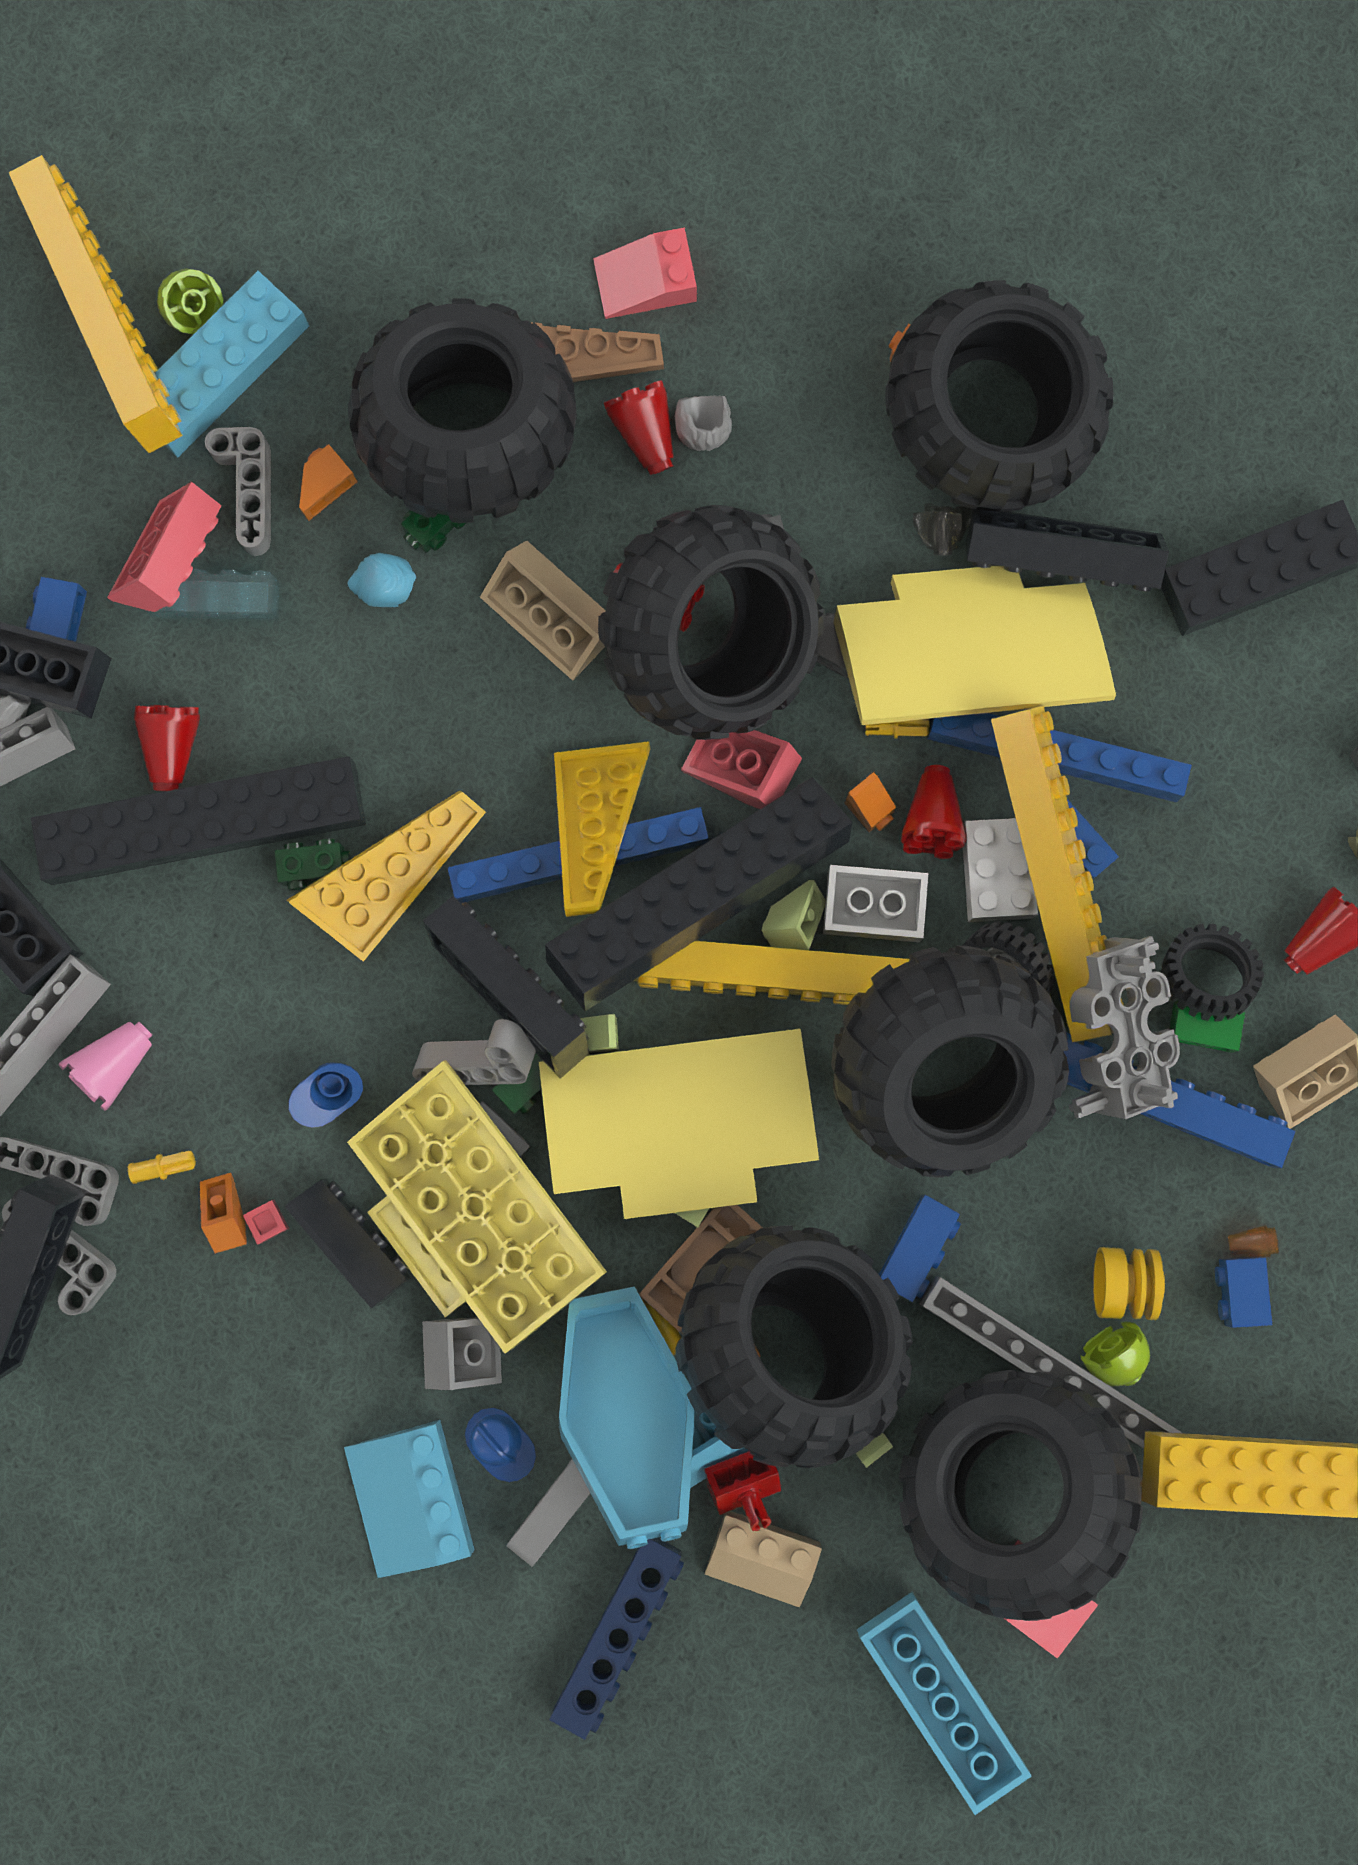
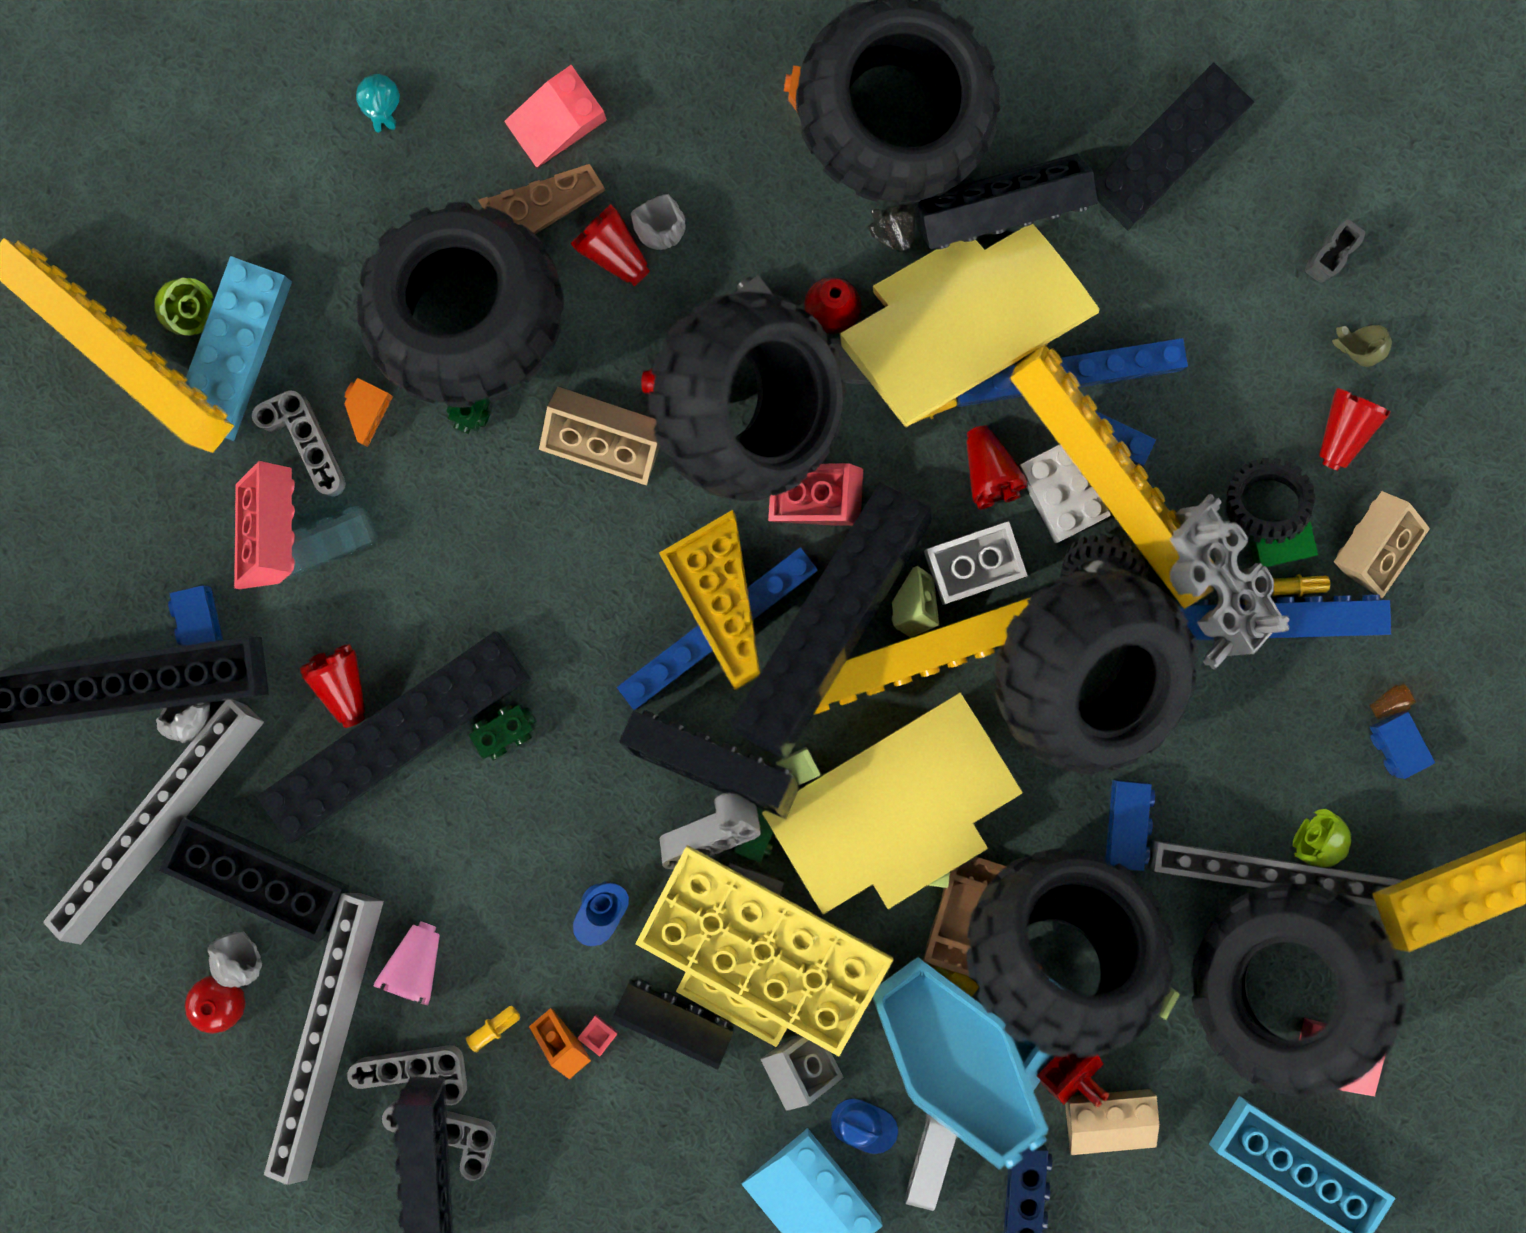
camera: 30 degrees left, 5 degrees up
(377, 886) = (564, 728): yellow wing -> none
(382, 580) = (454, 472): medium azure hair -> none
(476, 183) = (378, 99): none -> teal piece
(845, 578) = (833, 304): none -> red cone
(871, 803) = (937, 483): orange slope -> none
(1132, 1283) = (1311, 780): yellow wheel -> none
(1207, 1076) = (1301, 585): none -> yellow axle

